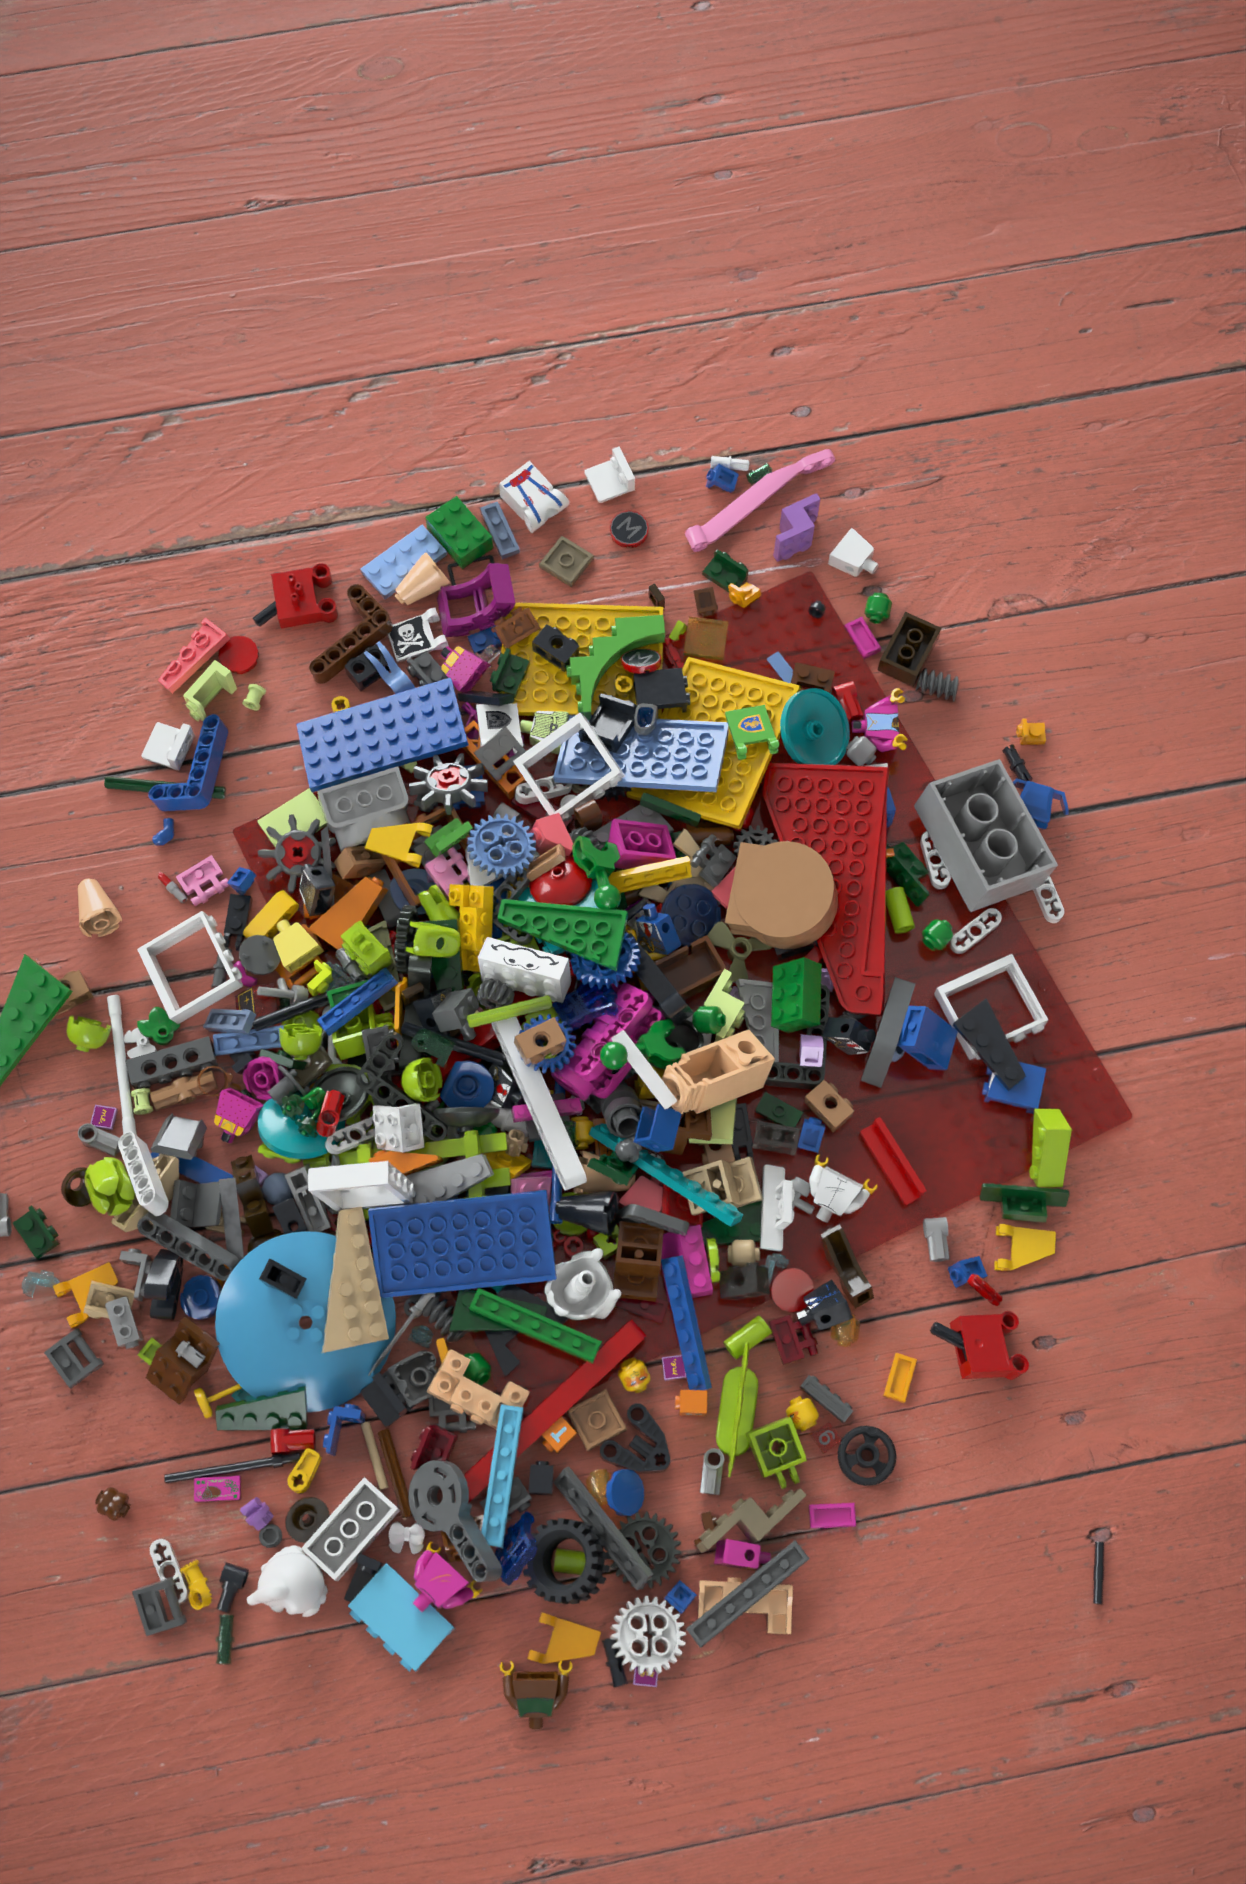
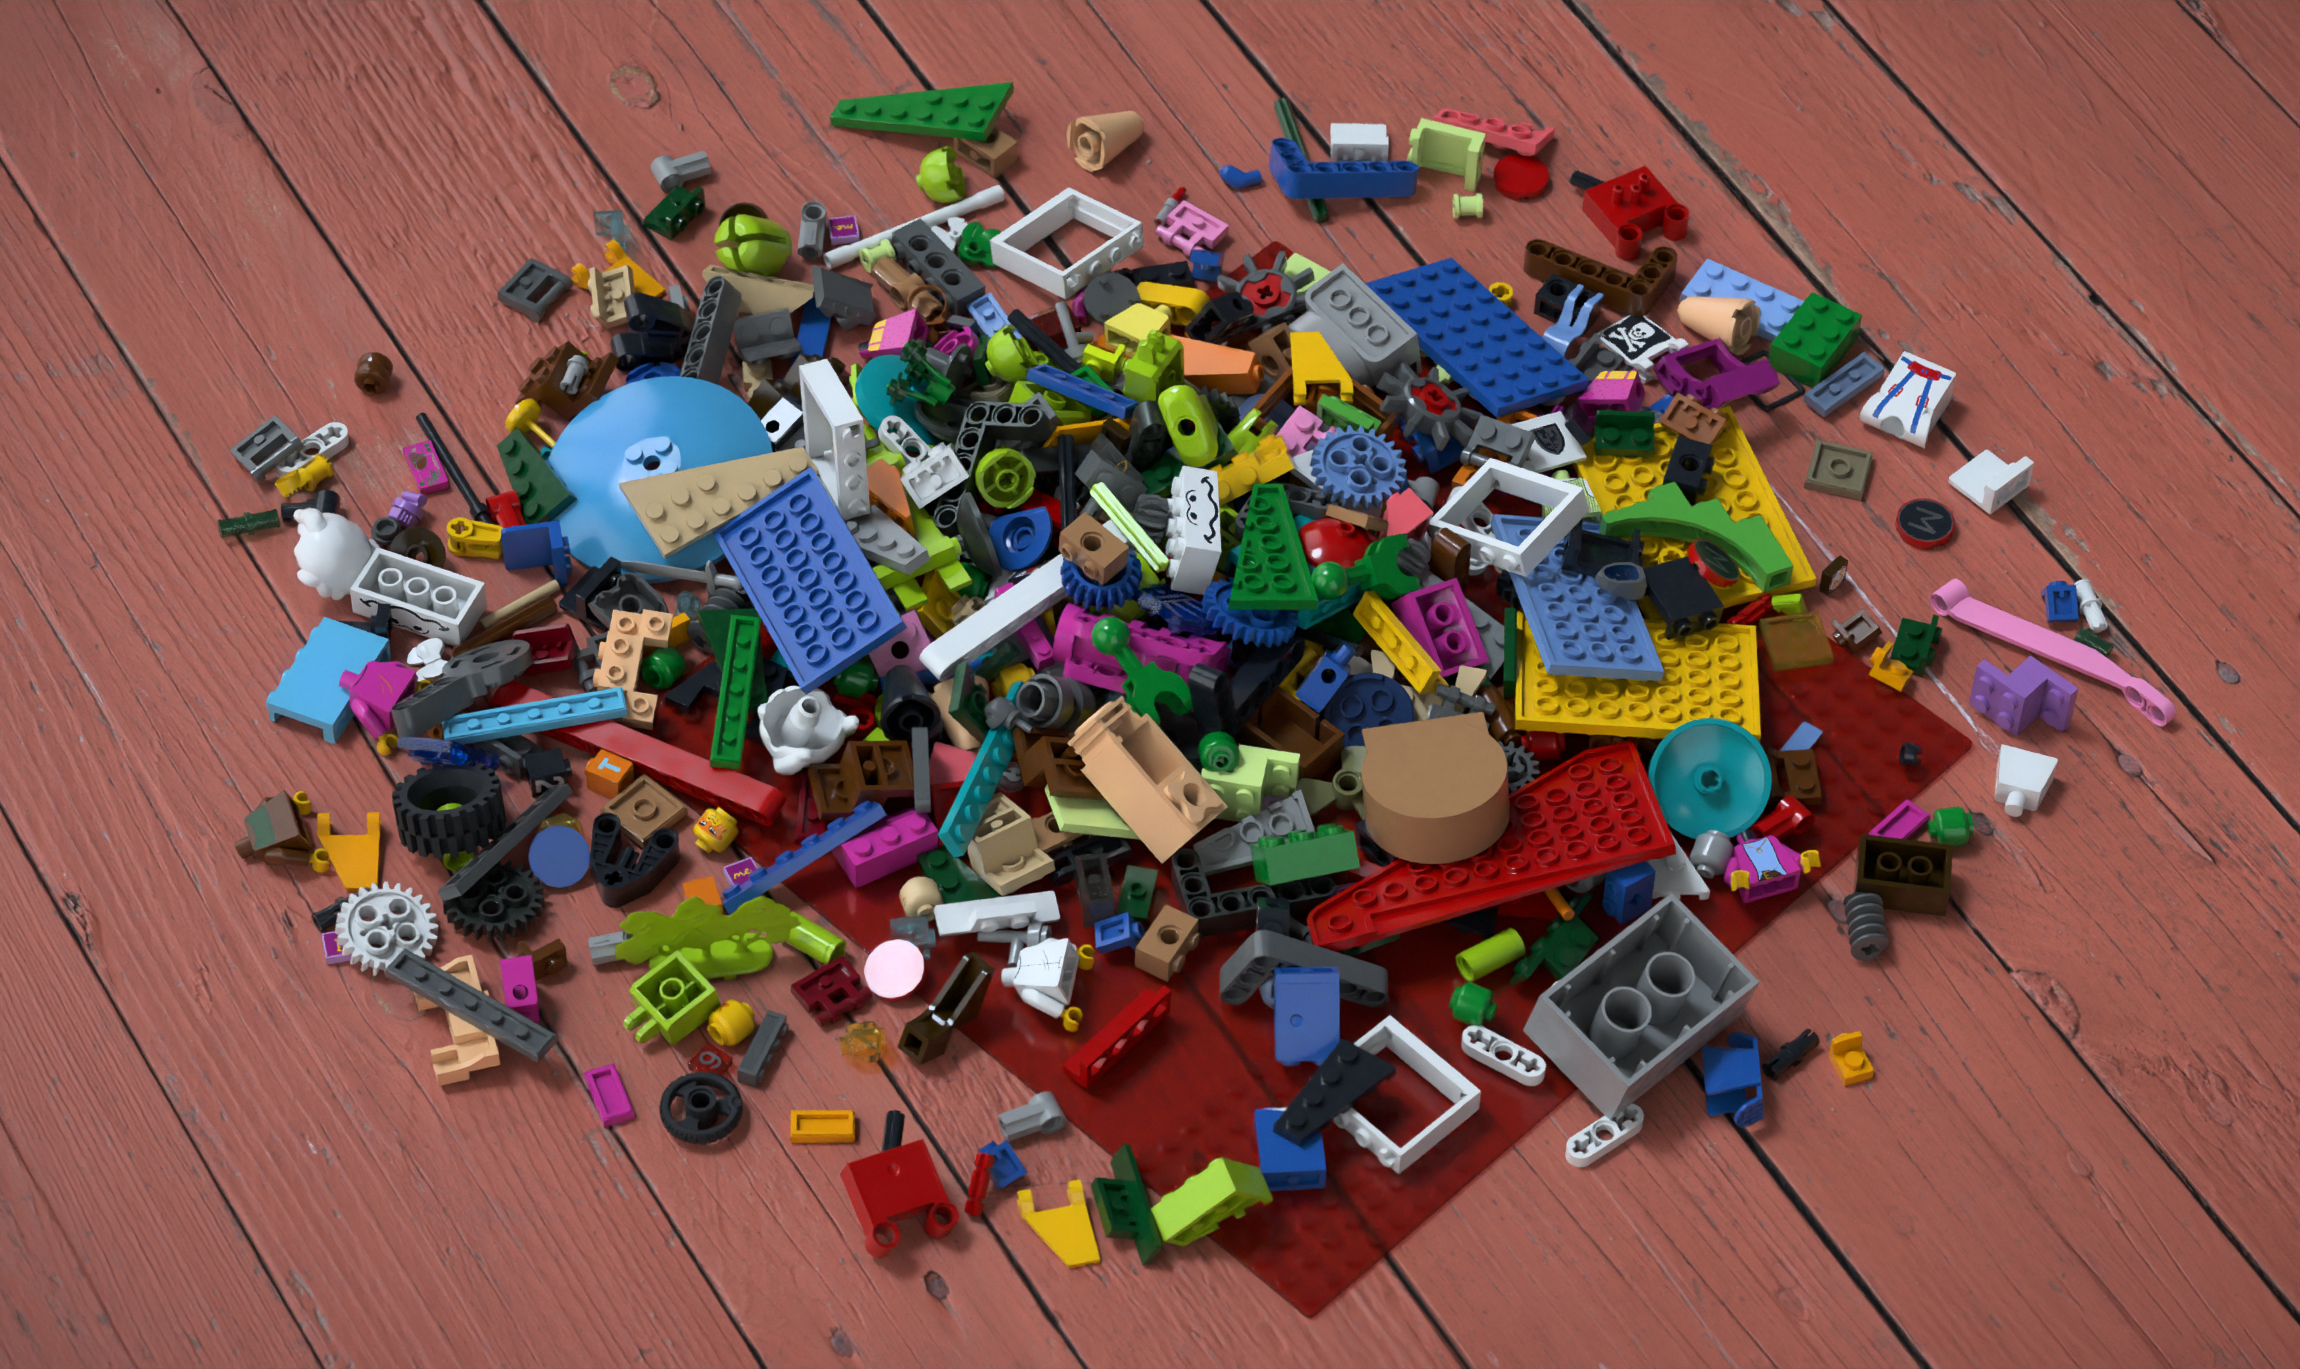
camera: 70 degrees right, 20 degrees down
(123, 1323) = (587, 312): light grey bracket -> none
(143, 1174) = (777, 266): white beam -> none
(230, 1021) = (1012, 298): sand blue plate -> none
(231, 1217) = (766, 366): flat silver sticker -> none
(282, 1279) = (692, 408): black slope -> none
(330, 1112) = (923, 402): red piece -> none
(433, 1044) = (1052, 471): clear green leg -> none
(646, 1071) = (1104, 676): white sticker -> none
(657, 1128) = (1039, 723): blue piece -> none
(680, 1596) = (446, 951): blue tile -> none
(713, 1259) = (896, 859): lime tile -> none
(735, 1287) = (880, 900): clear smoke brick -> none
(750, 727) = (1667, 694): bright green flag -> none
(750, 1519) = (568, 990): dark tan bracket -> none
(811, 1050) = (1228, 885): lavender panel -> none
(825, 1307) = (882, 1004): black torso -> none

